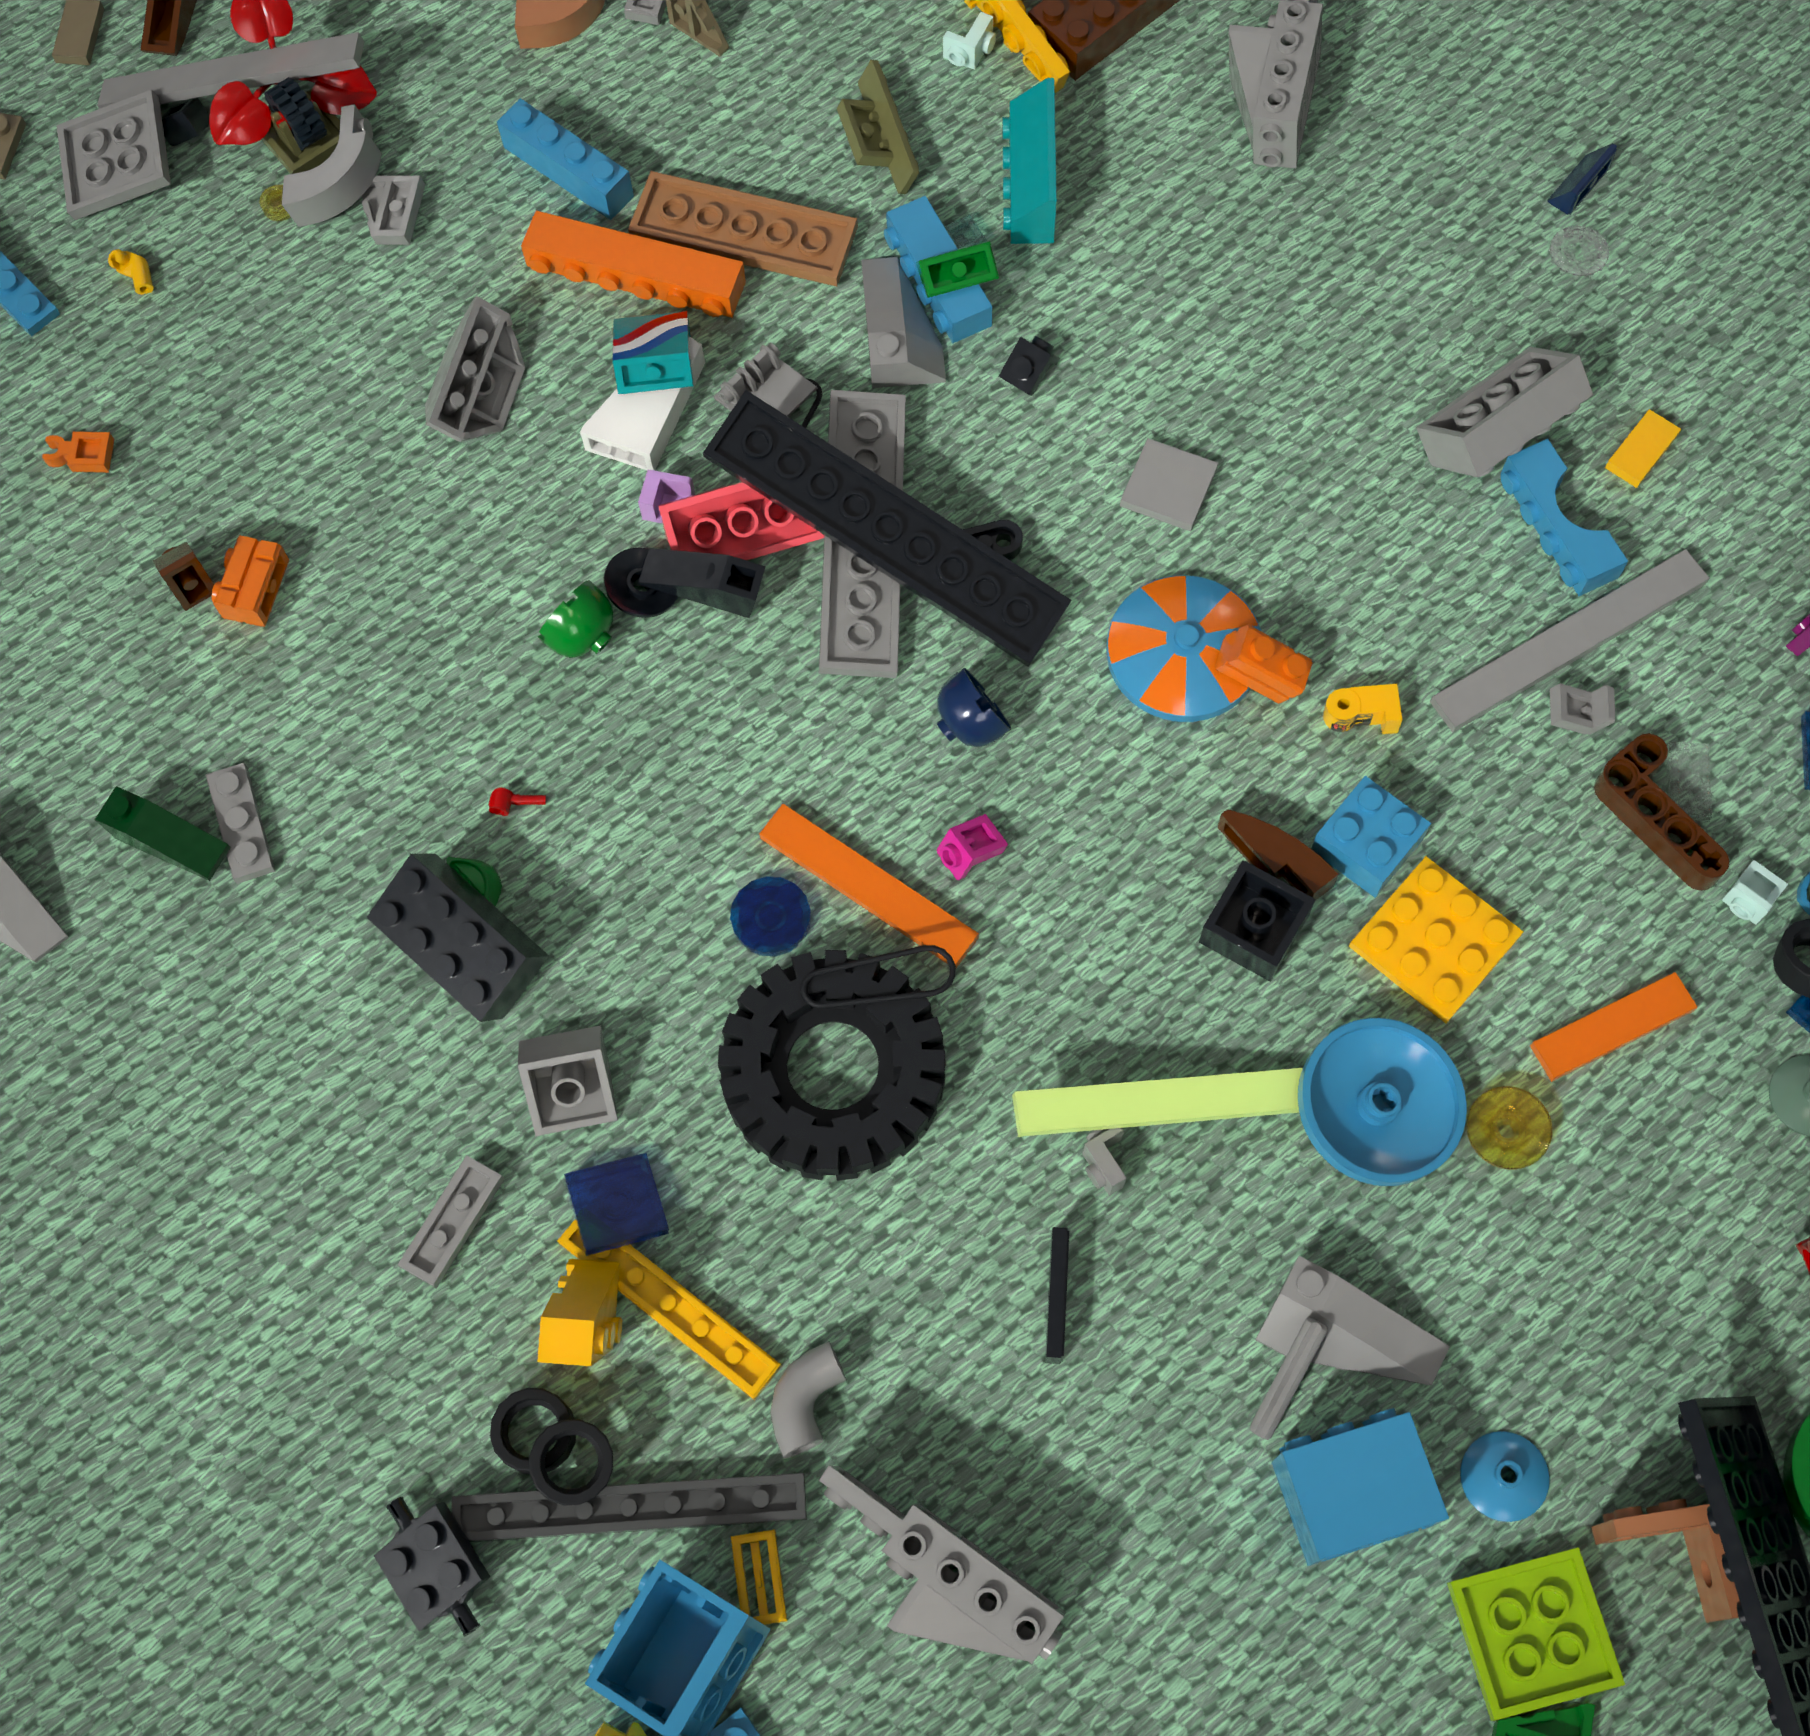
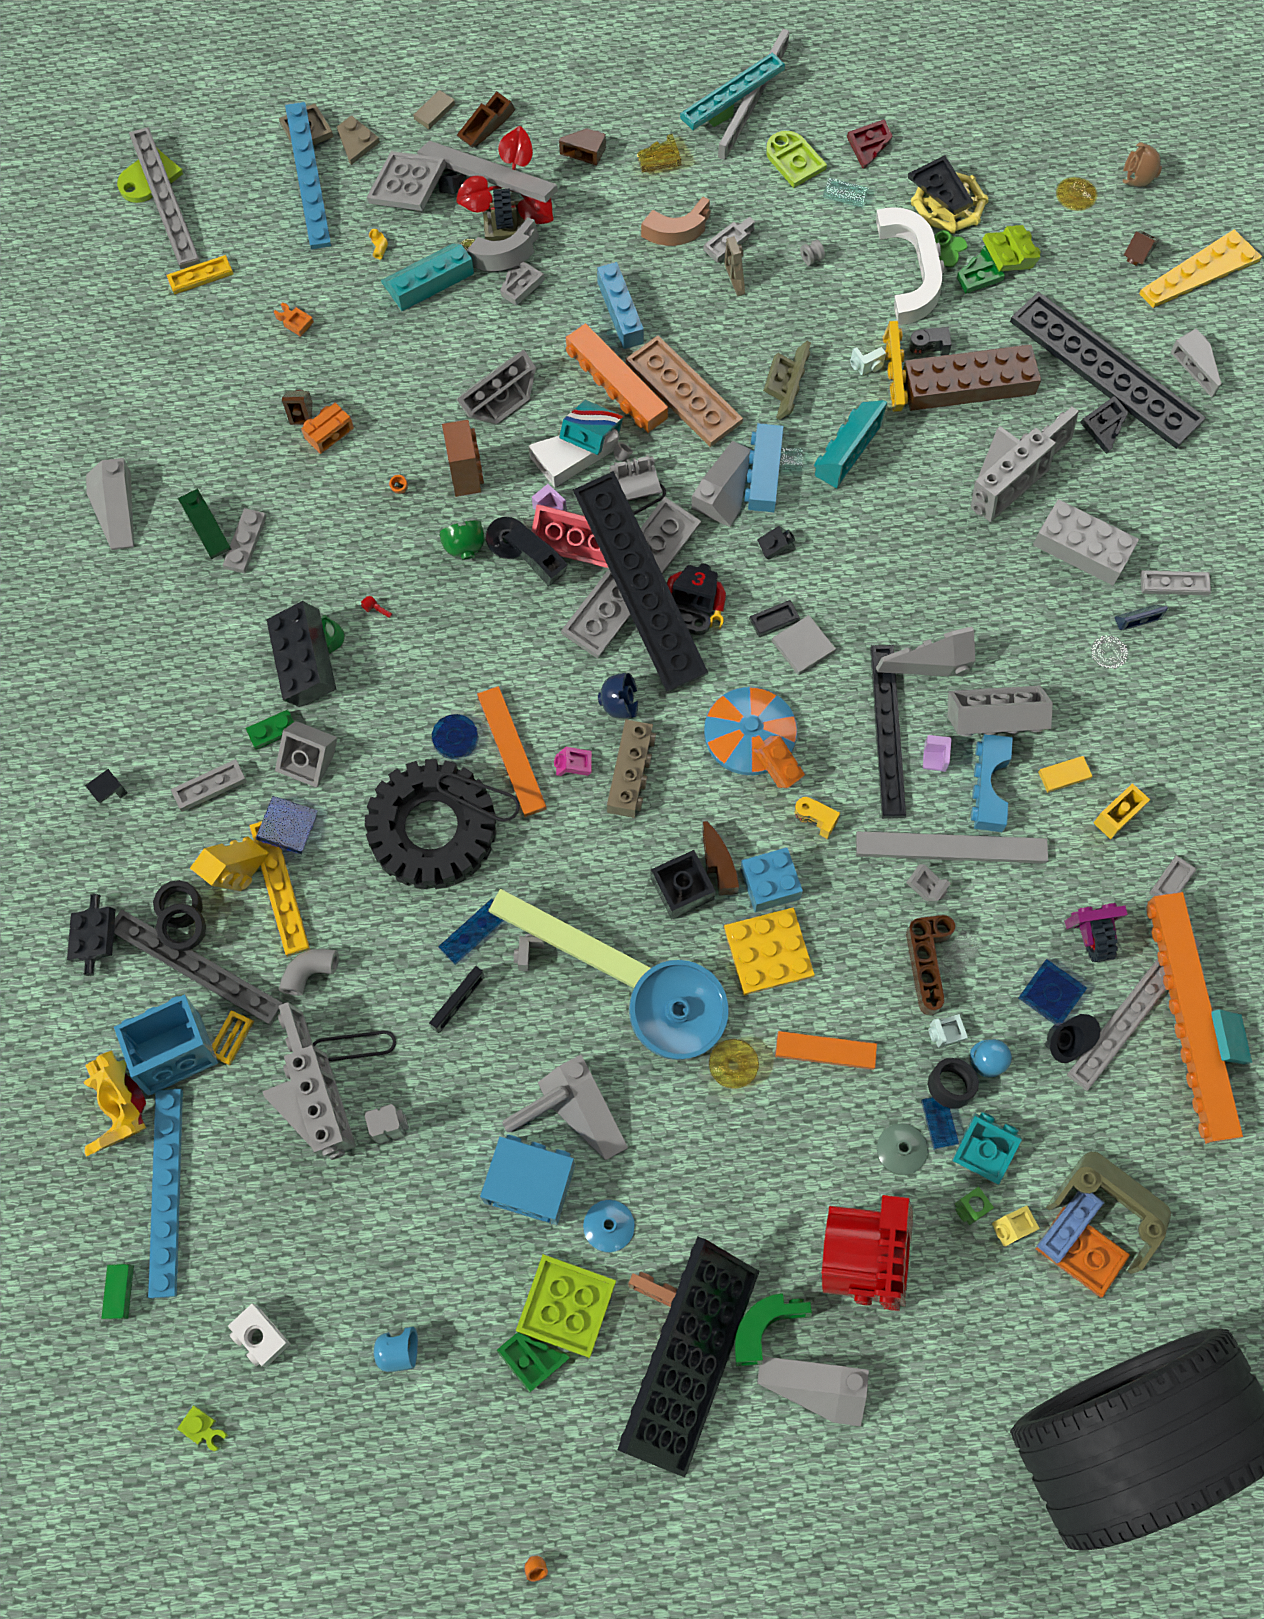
camera: 30 degrees right, 0 degrees up
(245, 273) = (429, 276): none -> teal slope
(292, 1326) = (105, 786): none -> black panel
(420, 593) = (399, 479): none -> orange hinge
(485, 1078) = (269, 730): none -> green plate
(498, 502) = (463, 457): none -> dark orange brick
(718, 364) = (622, 452): none -> light grey hinge
(945, 1446) = (359, 1035): none -> black piece
(957, 269) = (770, 473): green slope -> none
(976, 492) = (699, 590): none -> black torso
(1003, 1185) = (470, 934): none -> clear blue tile
(1060, 803) = (630, 769): none -> dark tan brick
(1095, 1547) = (386, 1124): none -> light grey brick
(1102, 472) = (774, 618): none -> black tile
(1368, 393) = (942, 658): none -> light grey wedge
(1370, 535) = (888, 737): none -> black tile
(1443, 121) = (1085, 542): none -> light grey brick
(1460, 522) = (936, 753): none -> lavender panel
(1592, 109) = (1175, 582): none -> light grey tile
(1757, 451) = (1121, 811): none -> yellow brick

